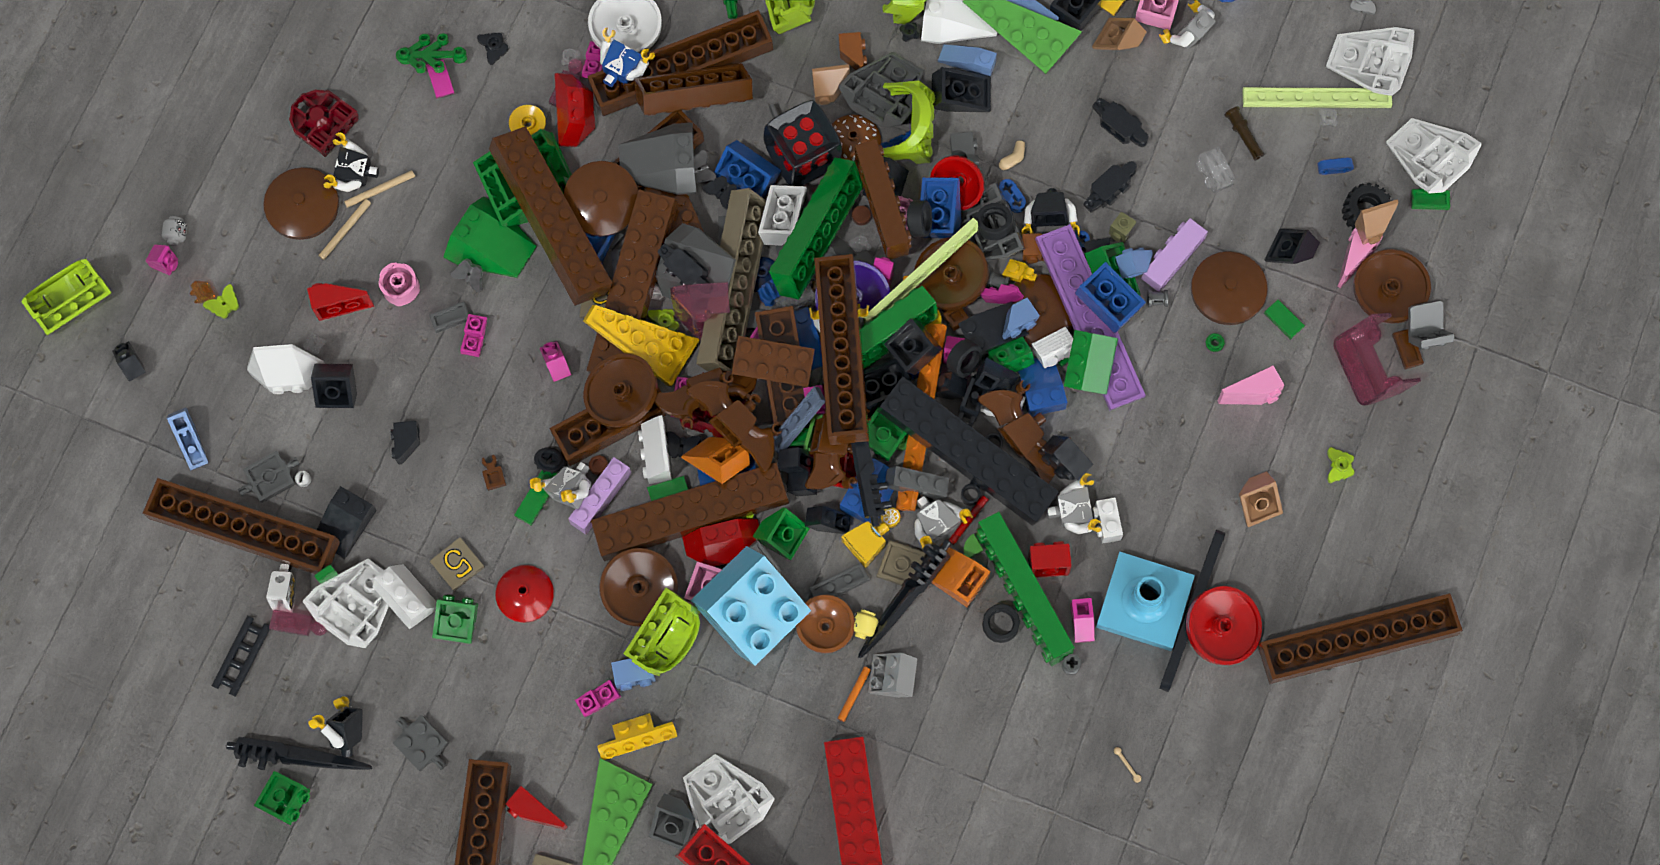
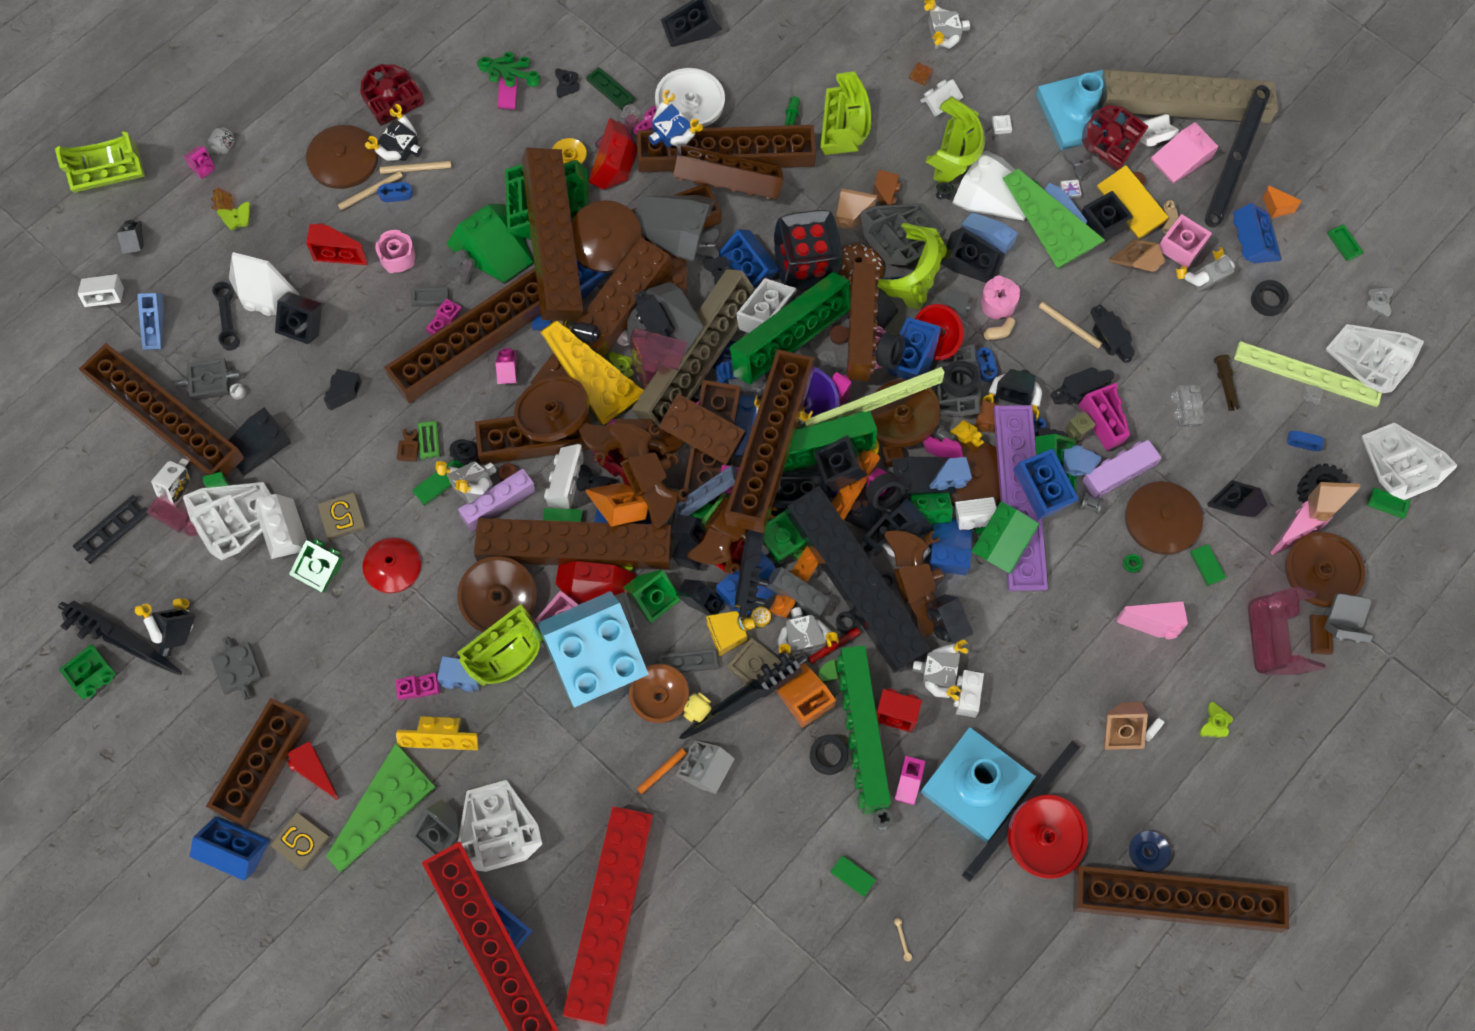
camera: 15 degrees right, 5 degrees down
(128, 423) = (101, 290): none -> white brick
(258, 407) = (226, 317): none -> black piece
(370, 222) = (395, 192): none -> blue beam
(505, 346) = (466, 338): none -> reddish brown brick
(515, 473) = (430, 454): none -> bright green tile
(540, 38) = (610, 88): none -> dark green tile
(568, 306) = (539, 324): none -> blue tile
(623, 303) = (586, 332): none -> black brick
(1005, 115) = (999, 298): none -> bright pink brick
(1062, 725) = (852, 876): none -> green tile
(1077, 127) = (1069, 324): none -> tan bar
(1142, 206) = (1105, 410): none -> dark pink wedge
(1260, 21) = (1275, 287): none -> black tyre
(1285, 493) = (1153, 729): none -> white tile
(1322, 597) = (1156, 845): none -> dark blue dish

